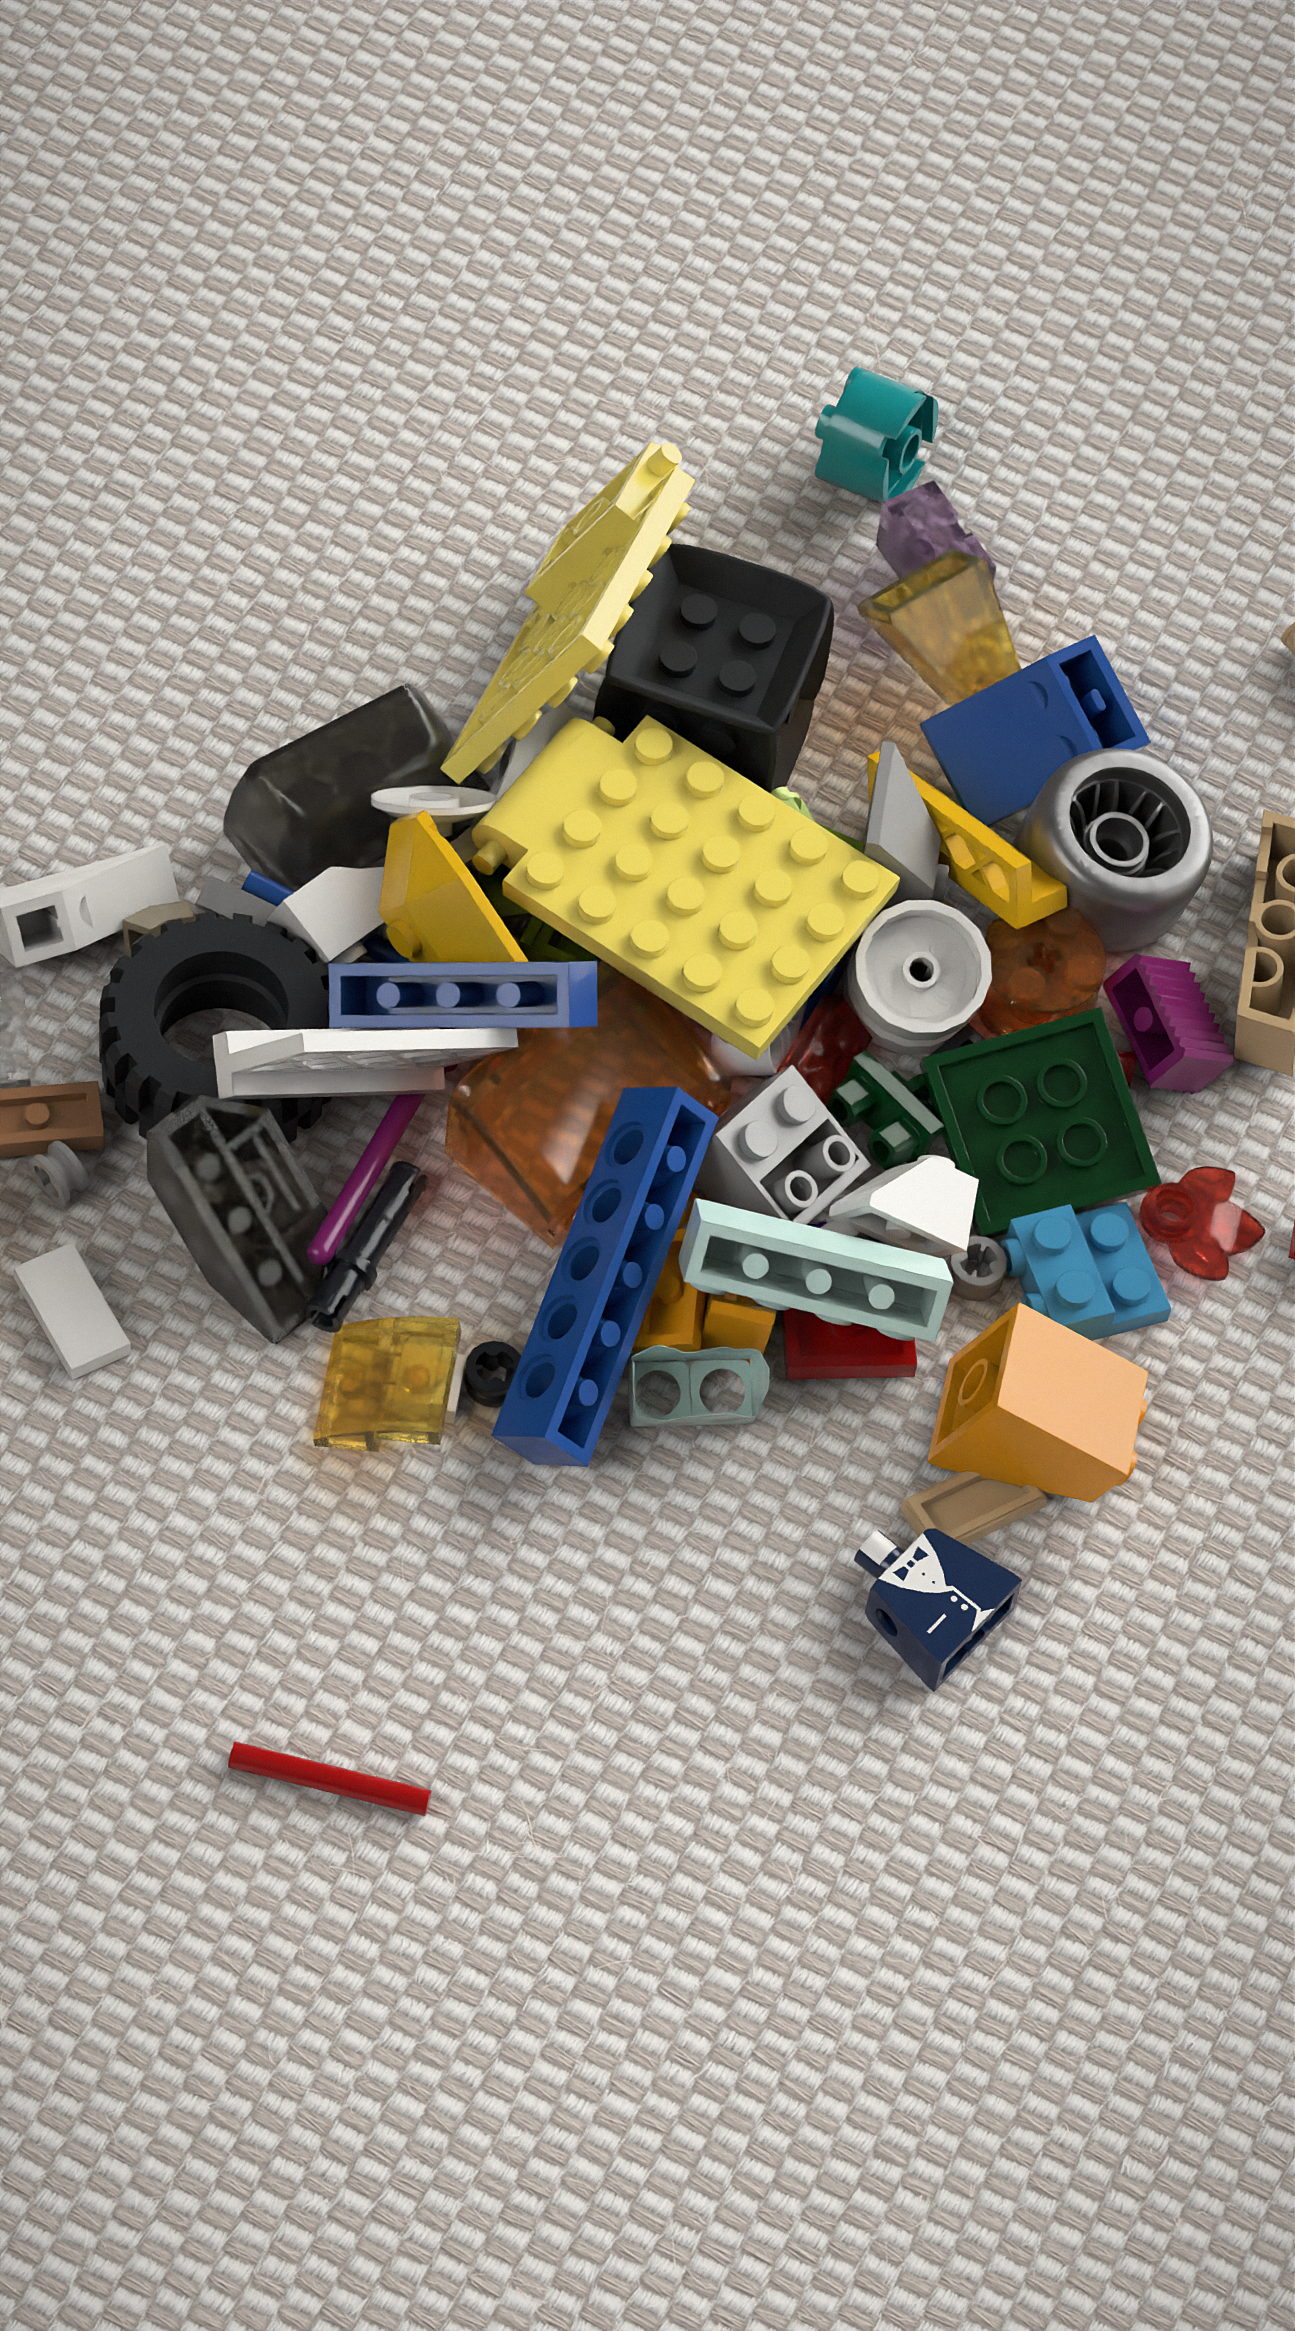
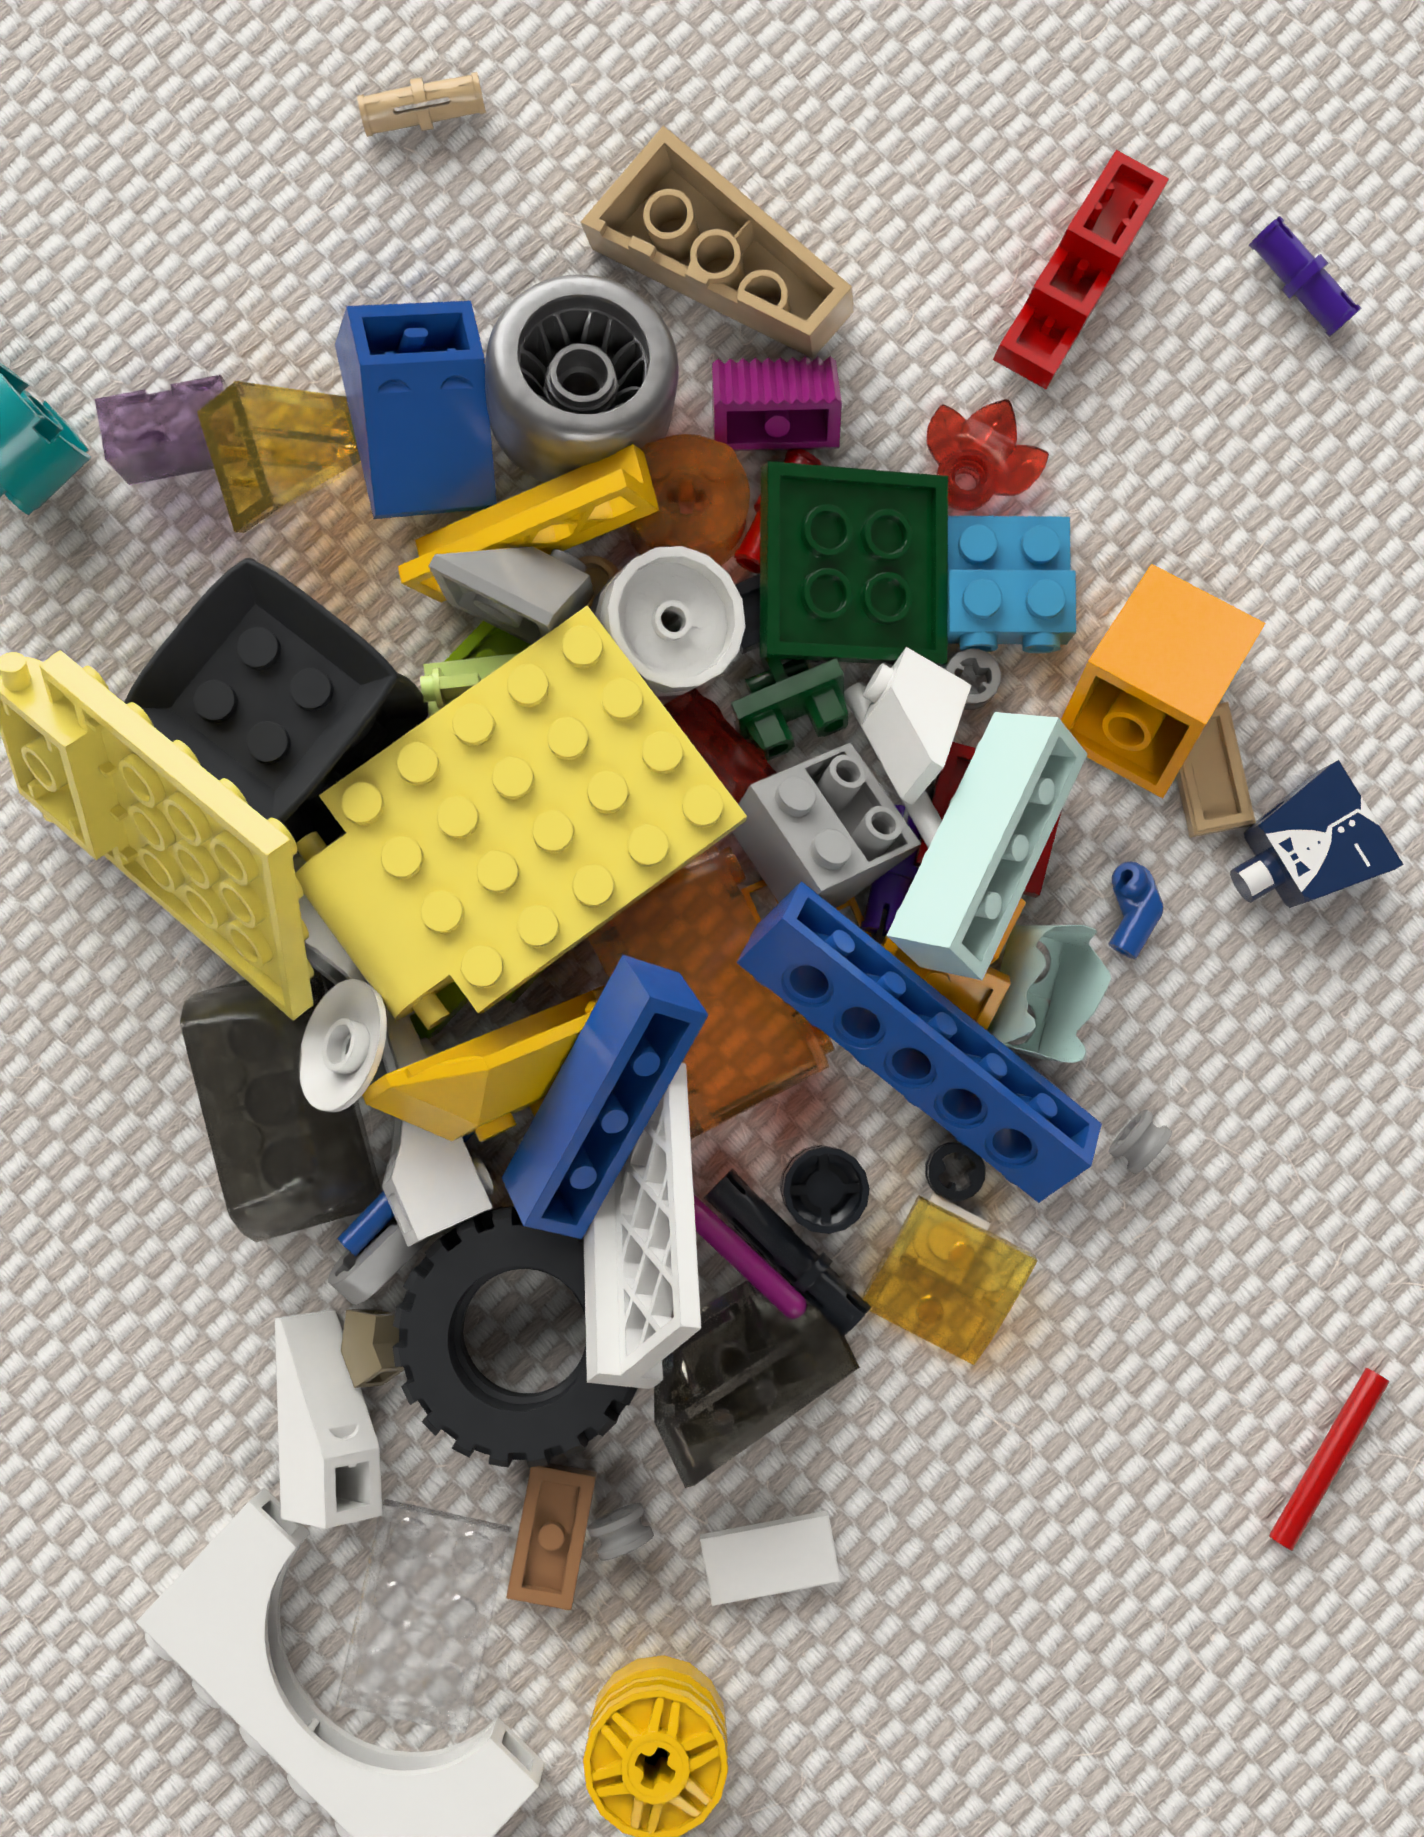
camera: 65 degrees left, 25 degrees up
(439, 1250) = (824, 1189): none -> black wheel
(582, 1520) = (1140, 1141): none -> light grey bush
(813, 1471) = (1139, 905): none -> blue arm

